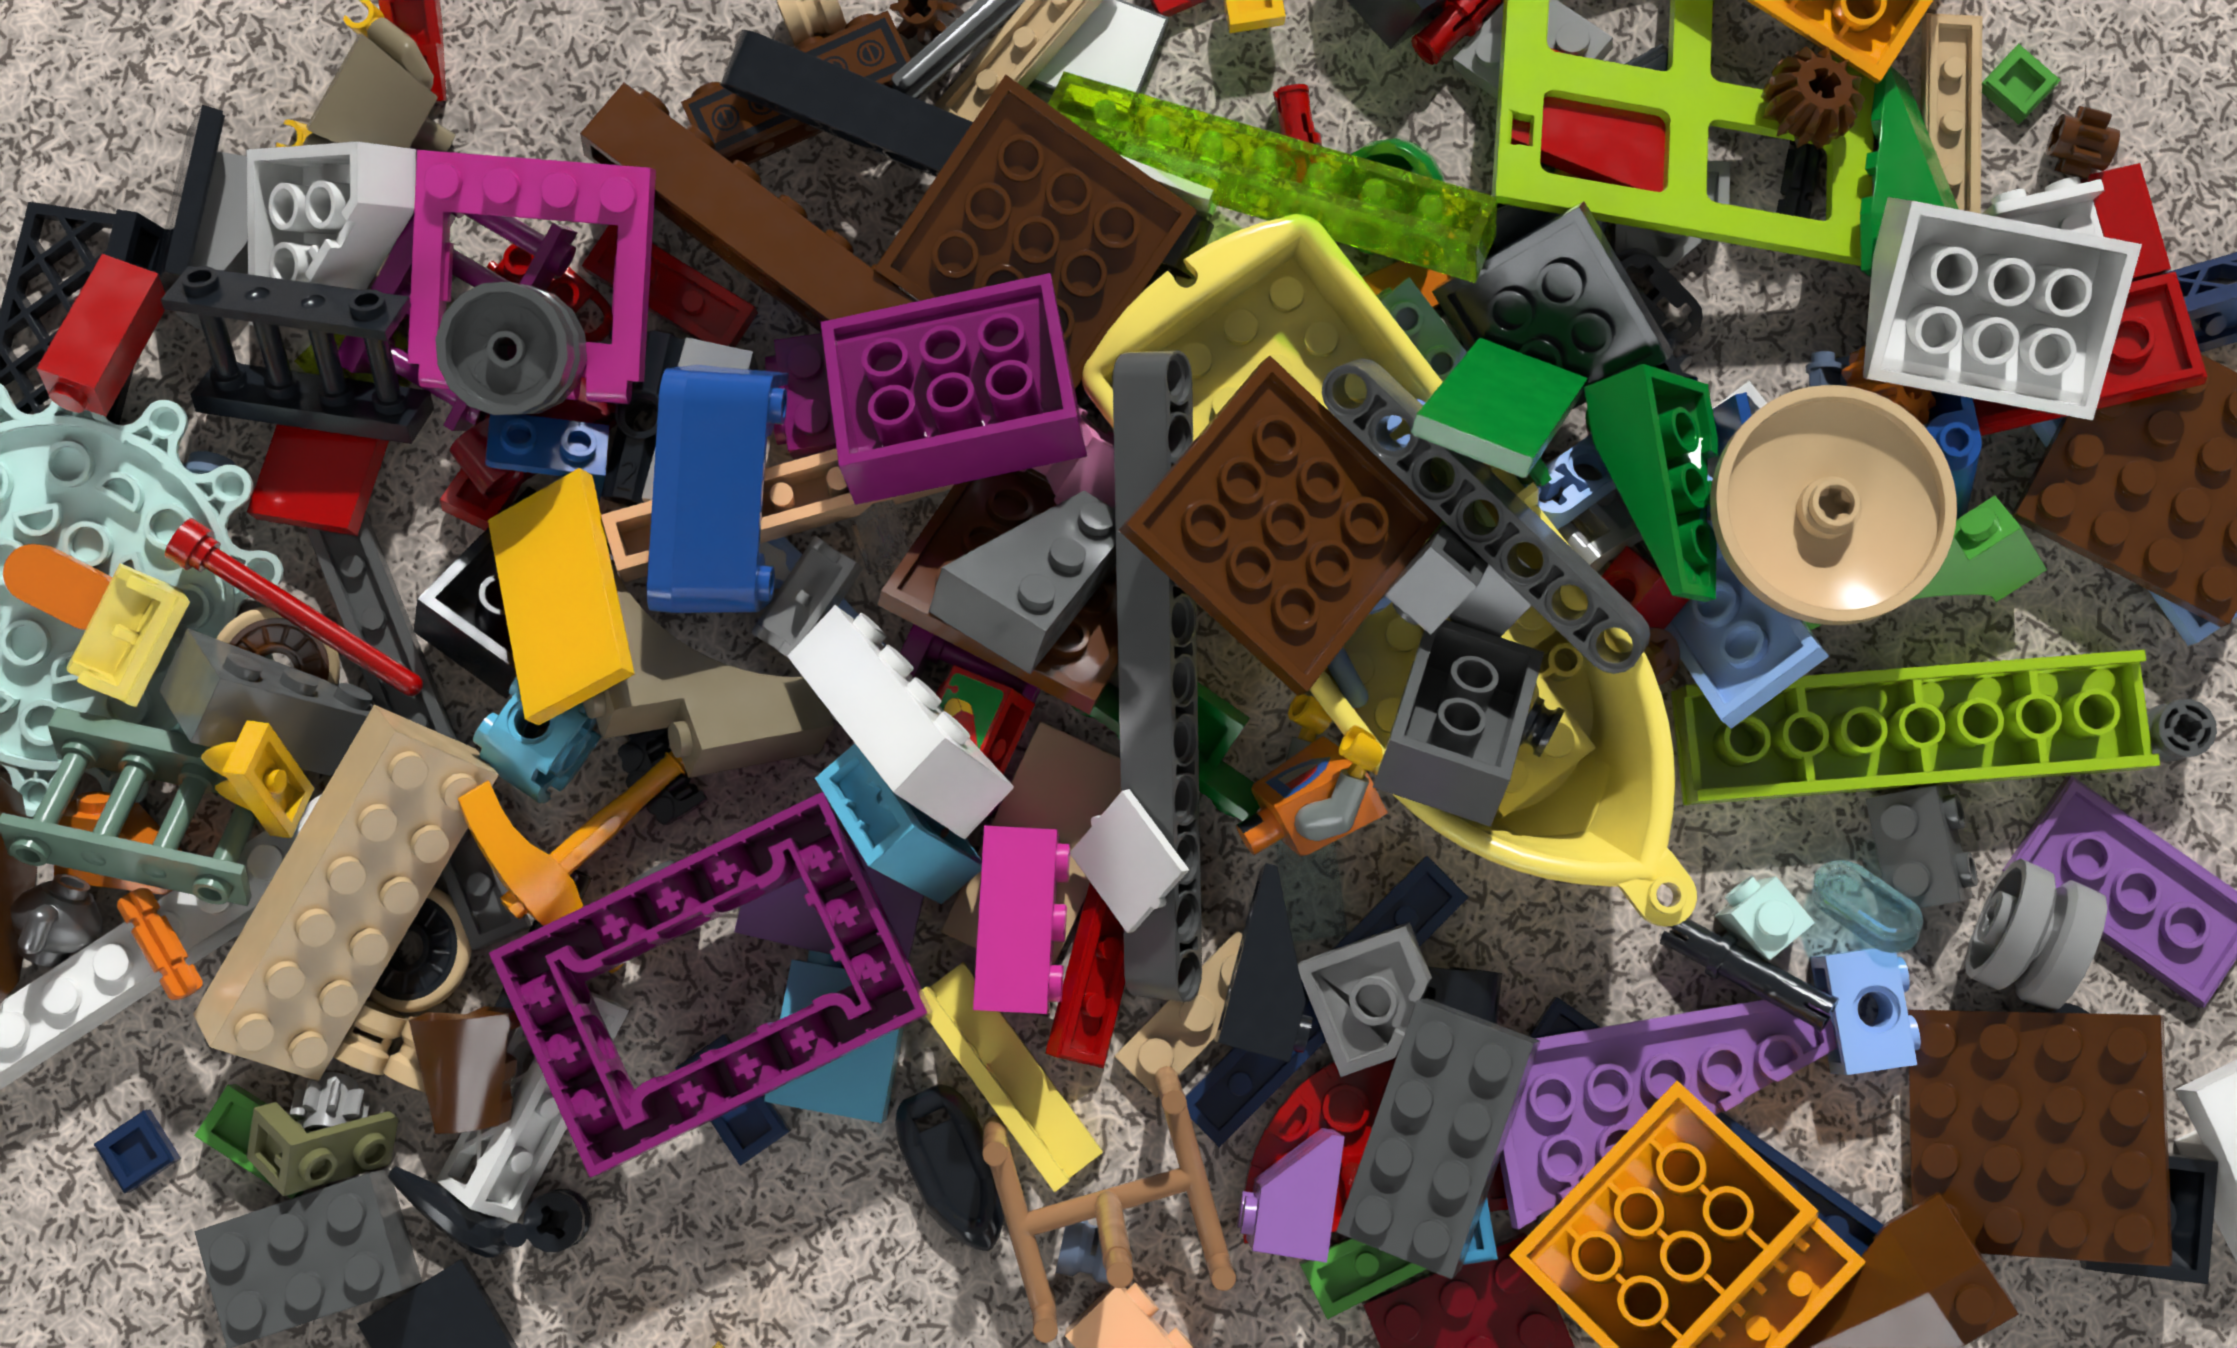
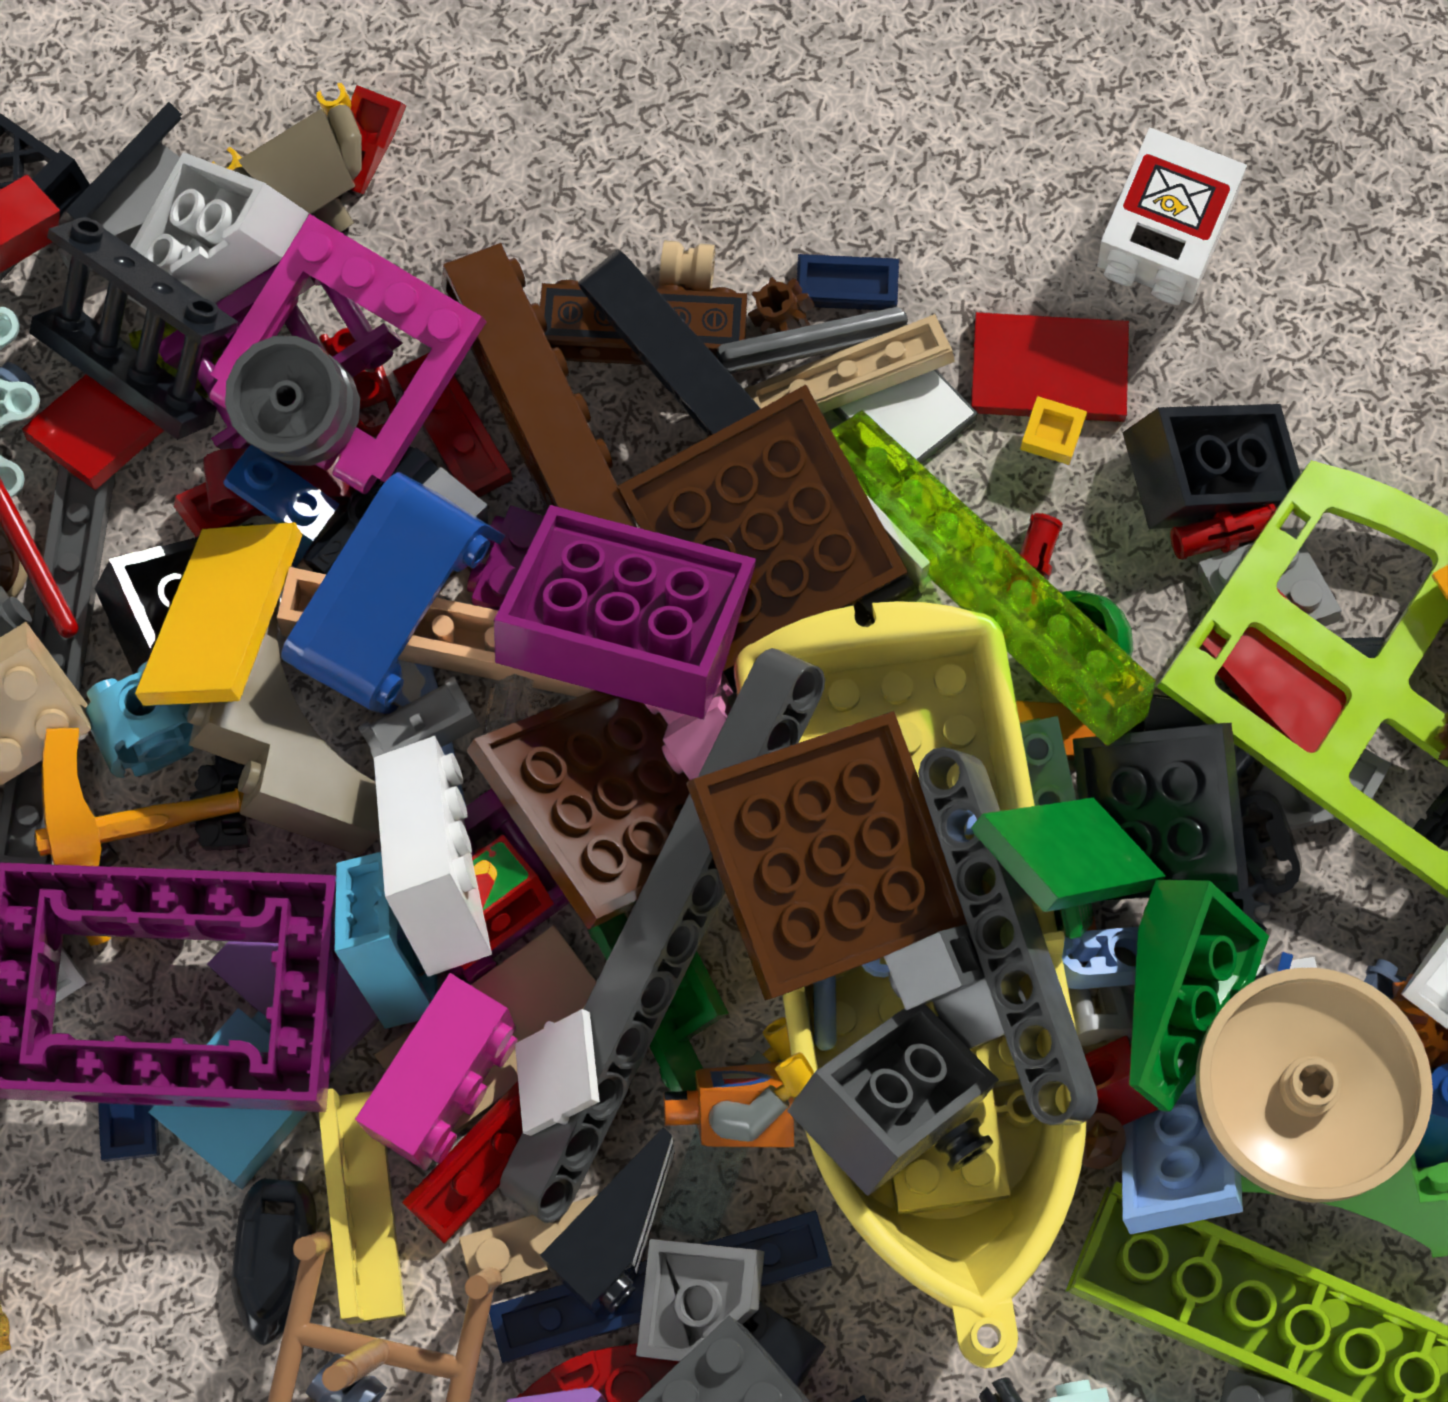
camera: 30 degrees right, 10 degrees down
(1031, 580) = (599, 794): dark grey wedge -> none

